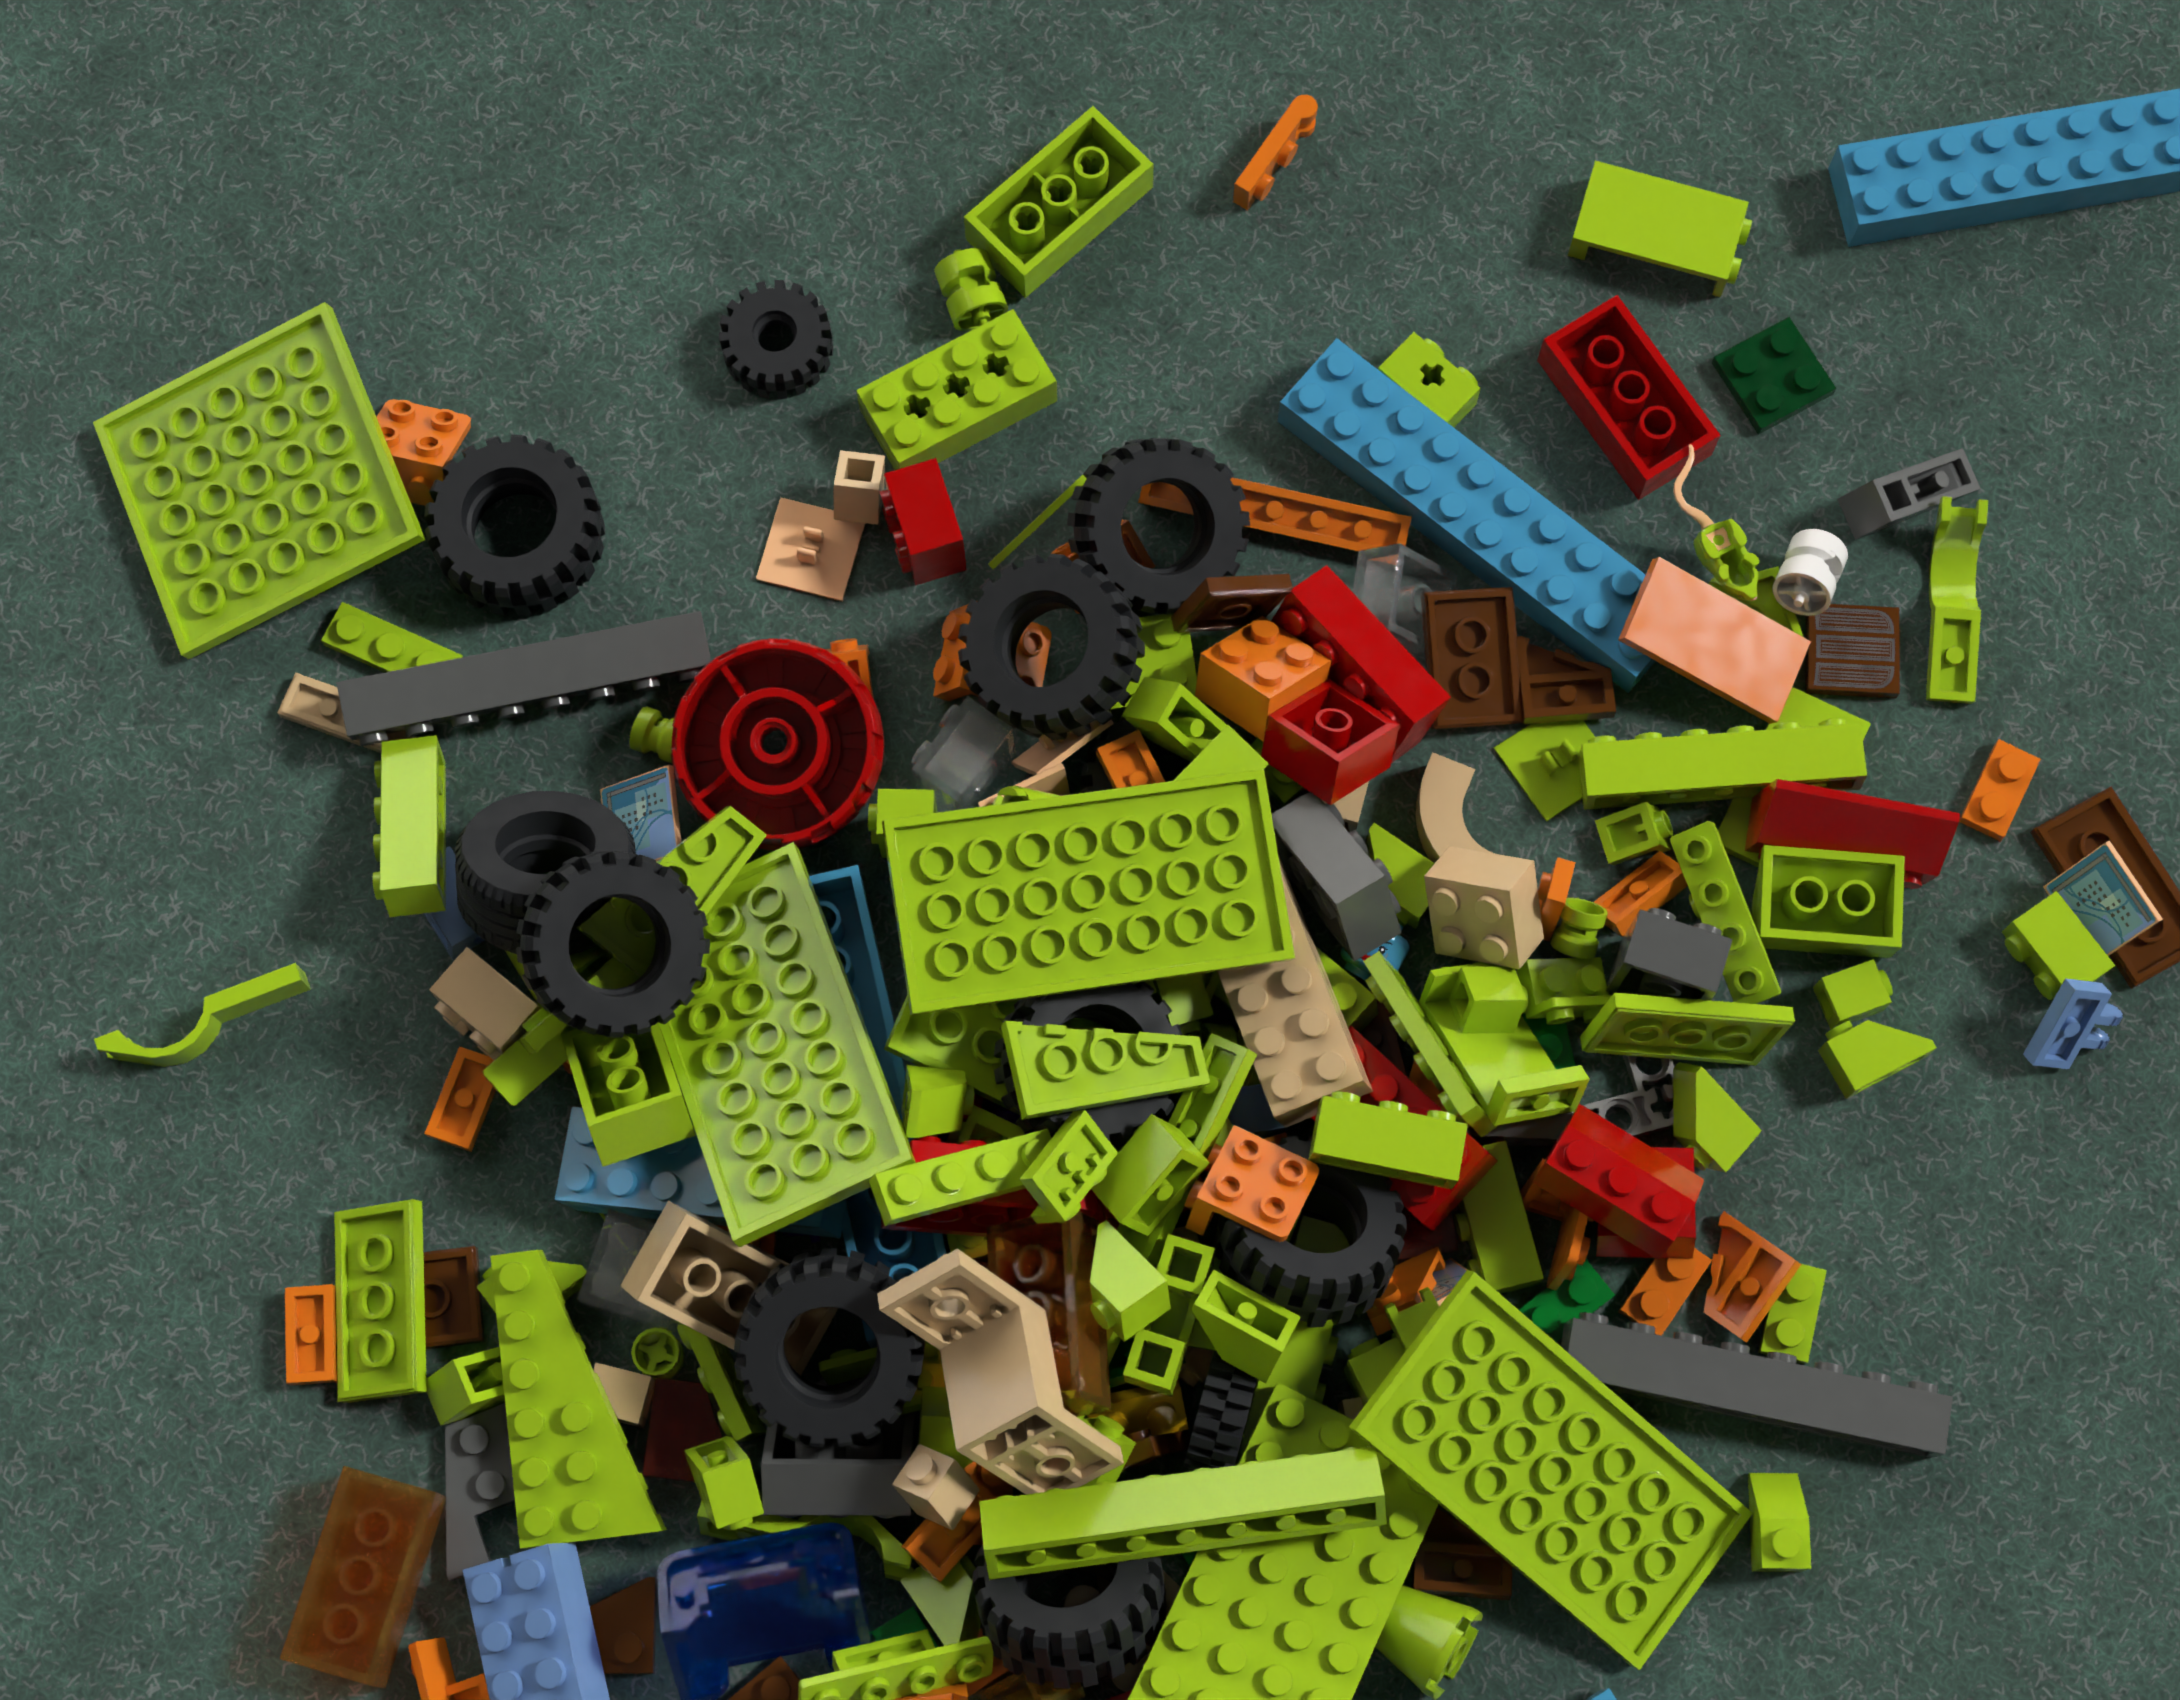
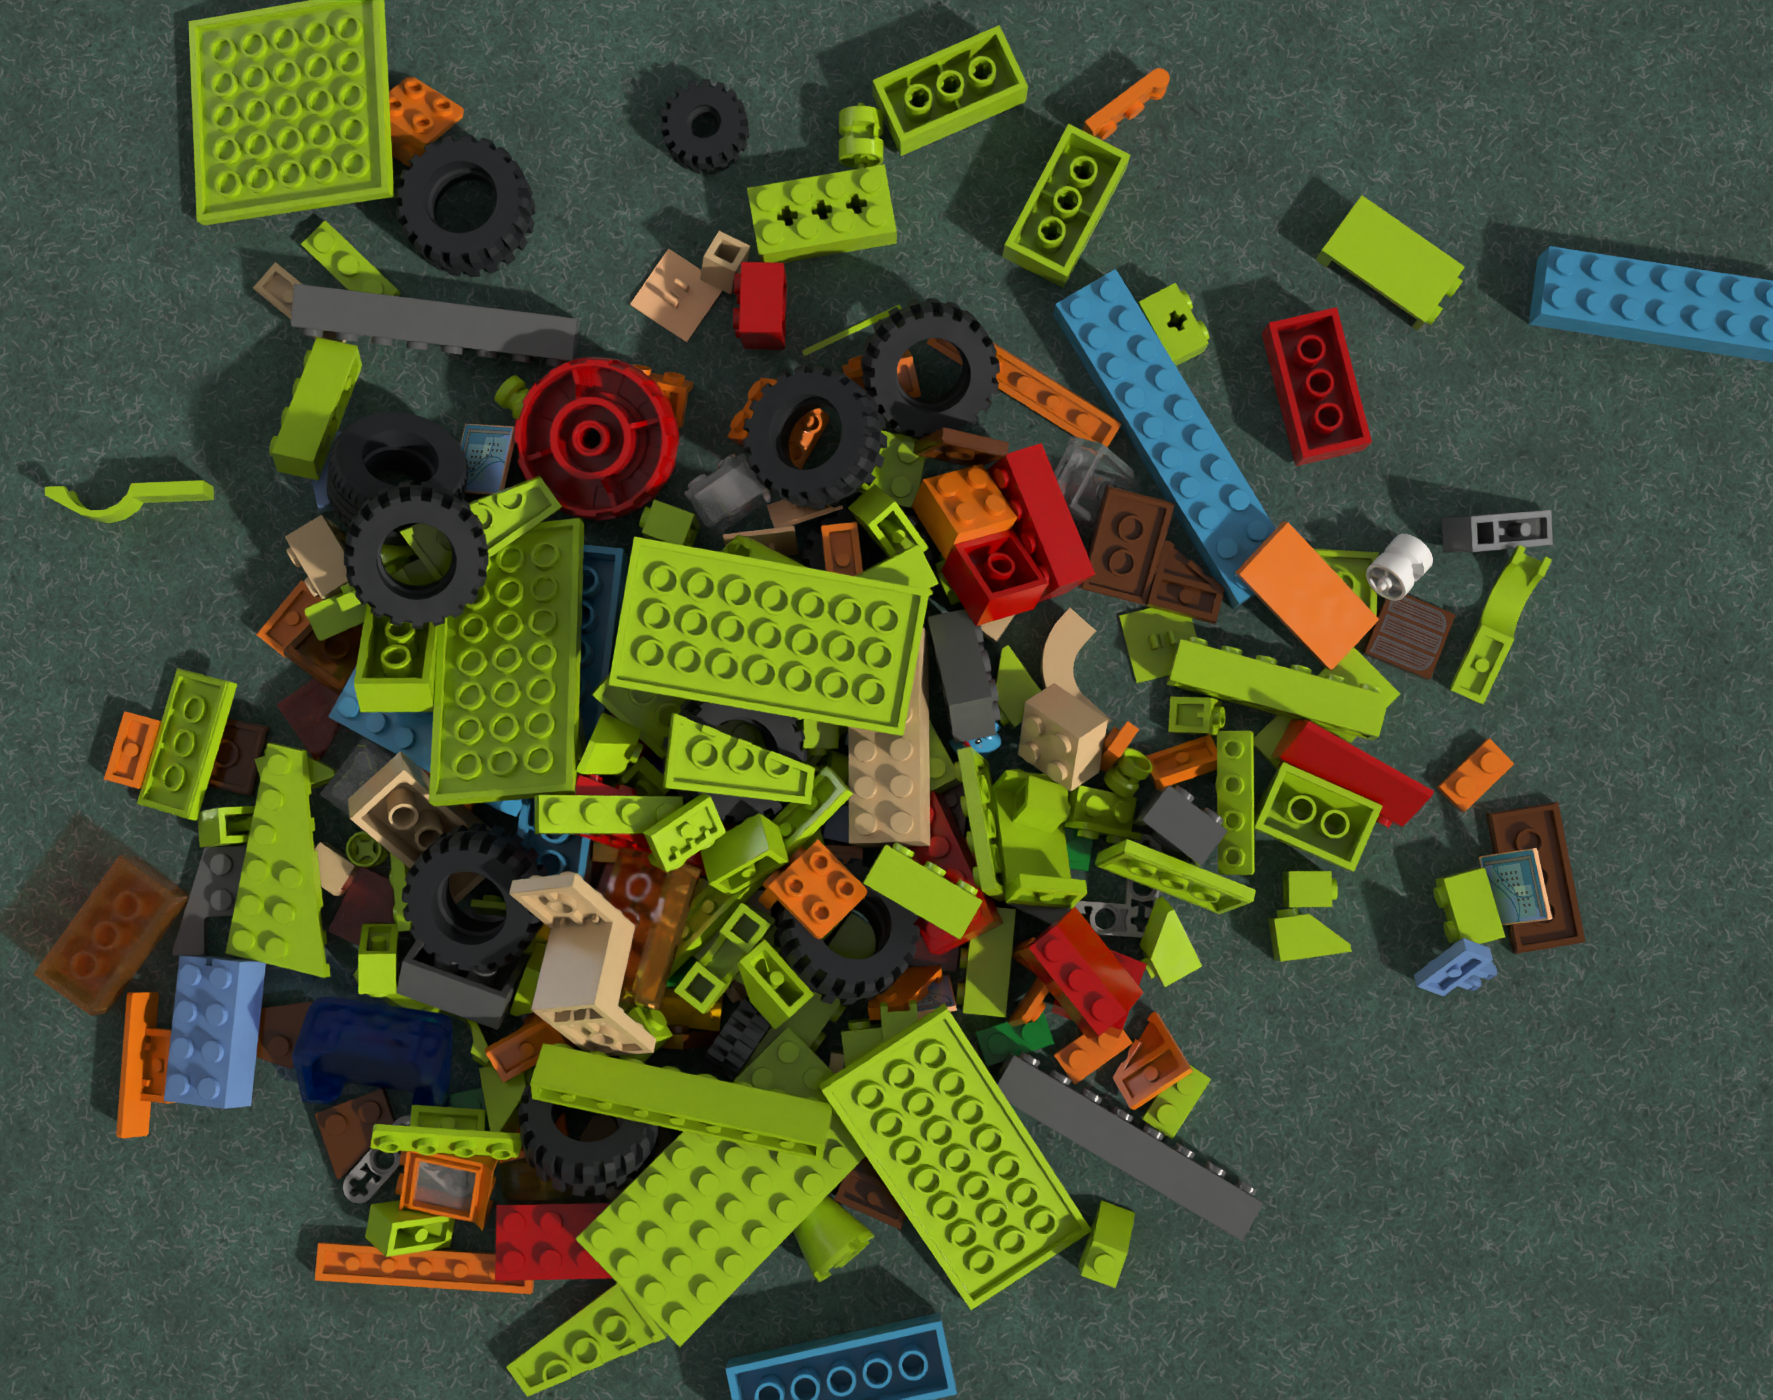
camera: 20 degrees right, 10 degrees up
(526, 1201) = (308, 715): none -> clear red wing
(531, 1129) = (327, 660): none -> reddish brown tile
(936, 1487) = (518, 1020): tan brick -> none
(1124, 1285) = (695, 928): lime slope -> none
(1231, 265) = (1058, 185): none -> lime brick
(1721, 547) = (1339, 526): lime animal -> none
(1773, 375) = (1433, 405): dark green plate -> none

